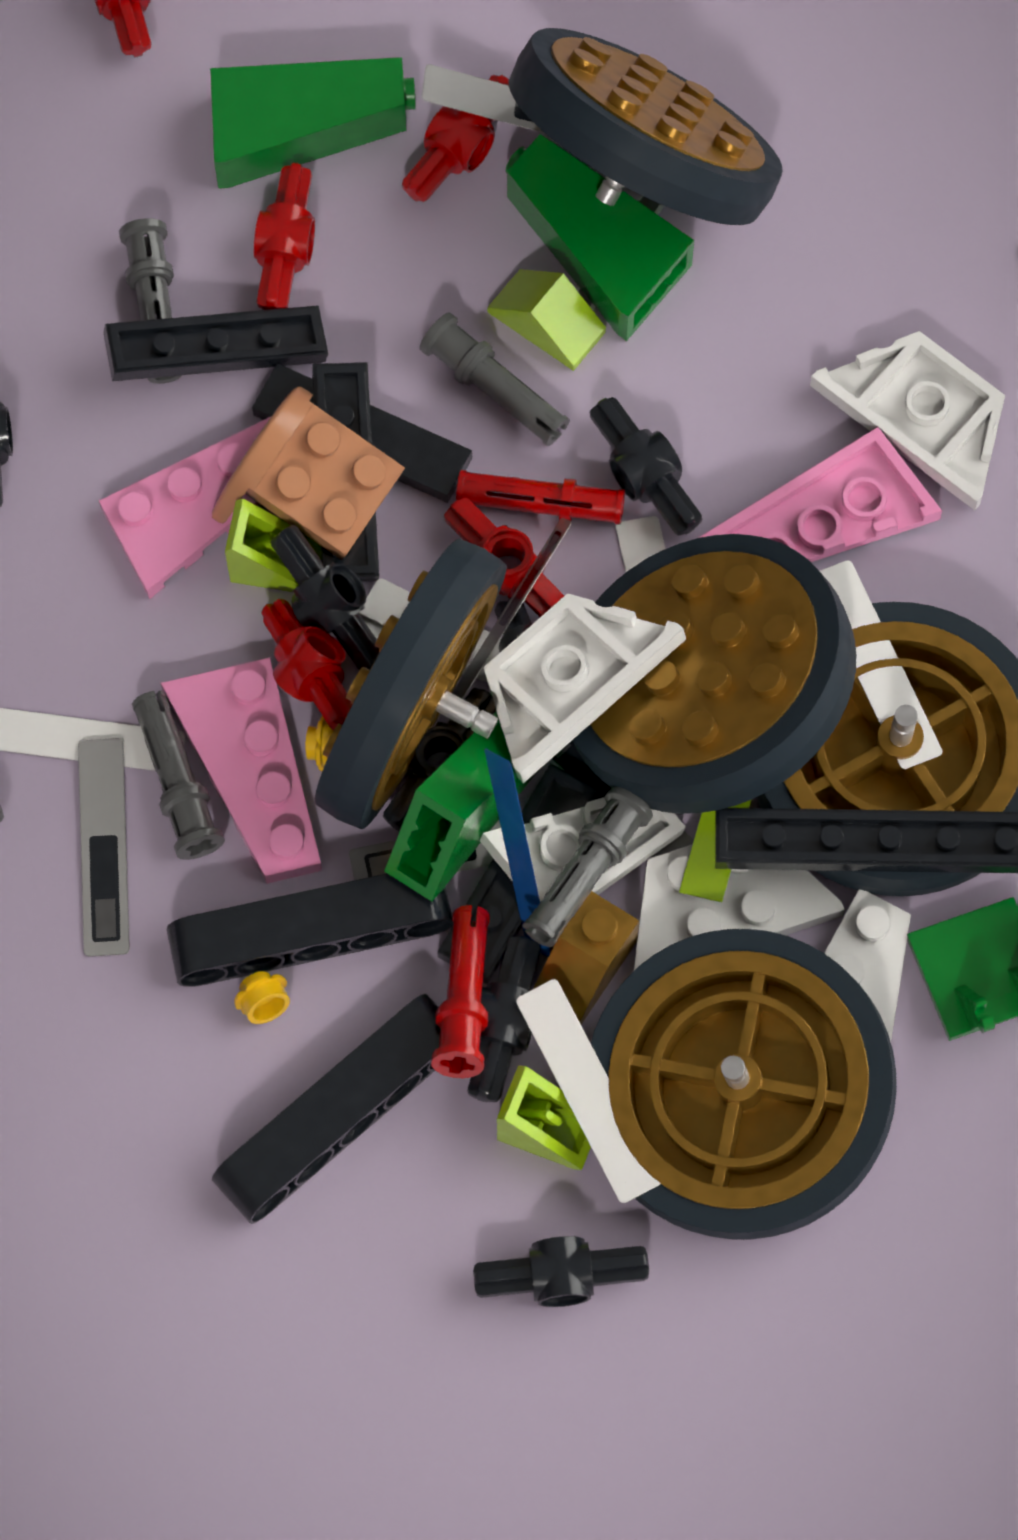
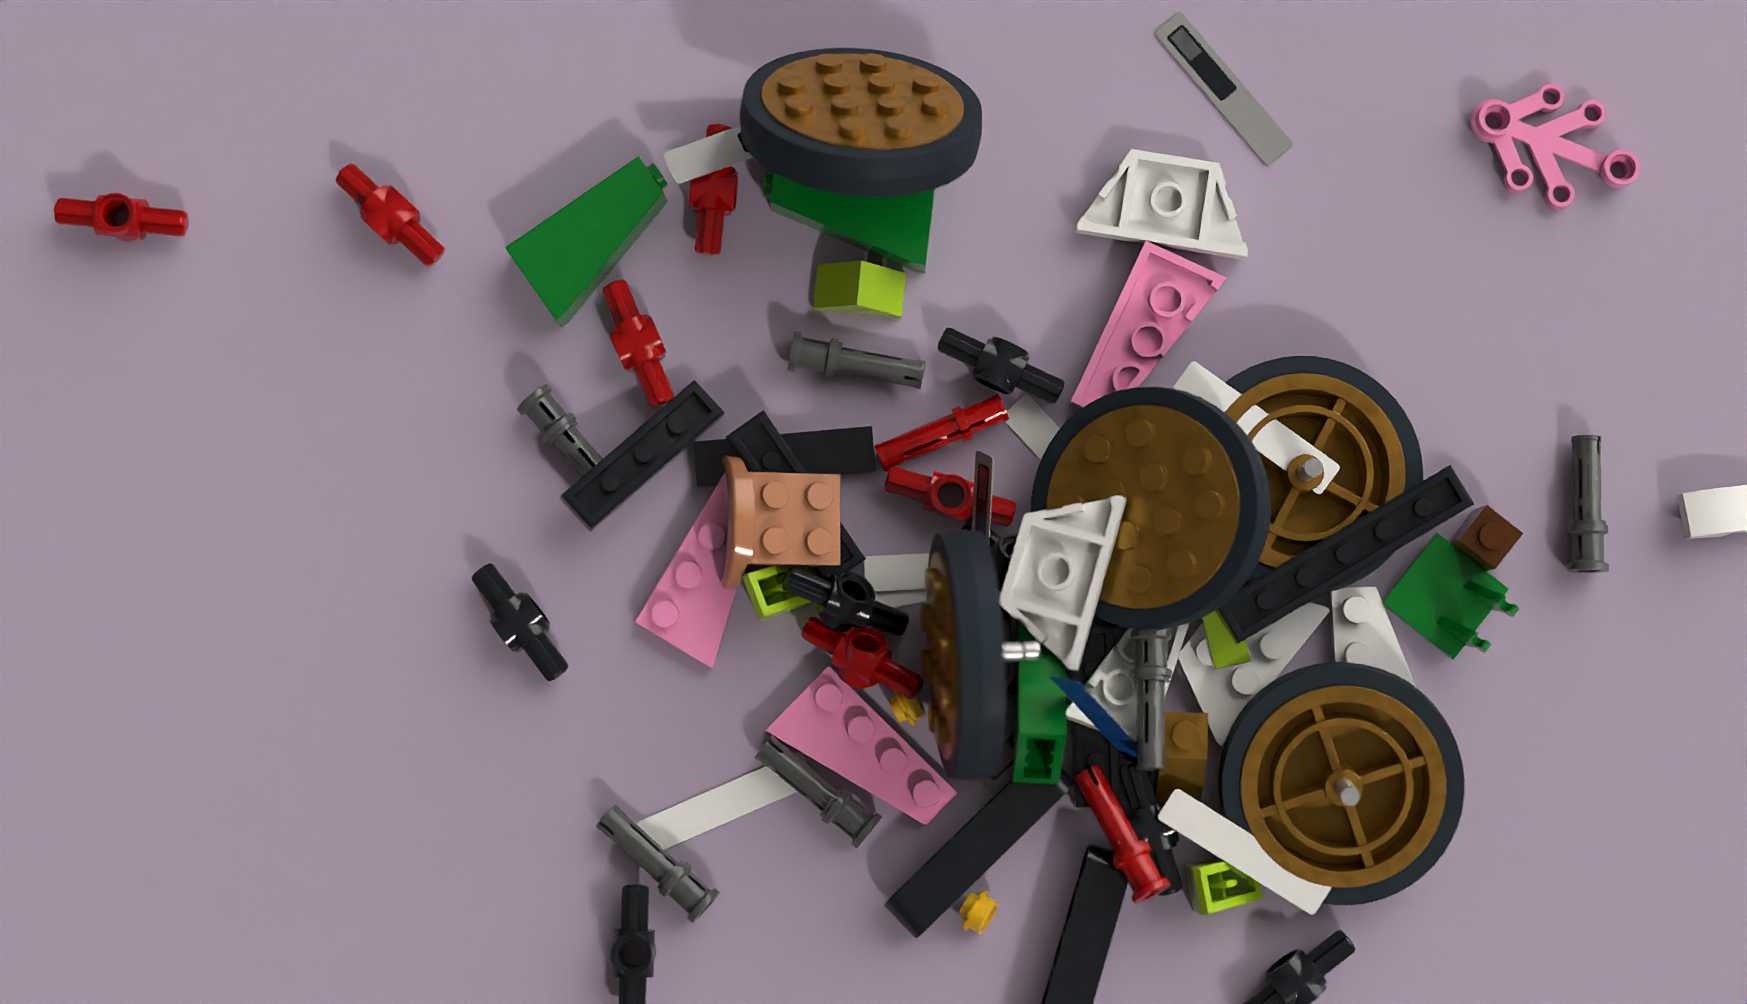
camera: 30 degrees left, 15 degrees up
(103, 847) = (798, 868): light grey sticker -> none

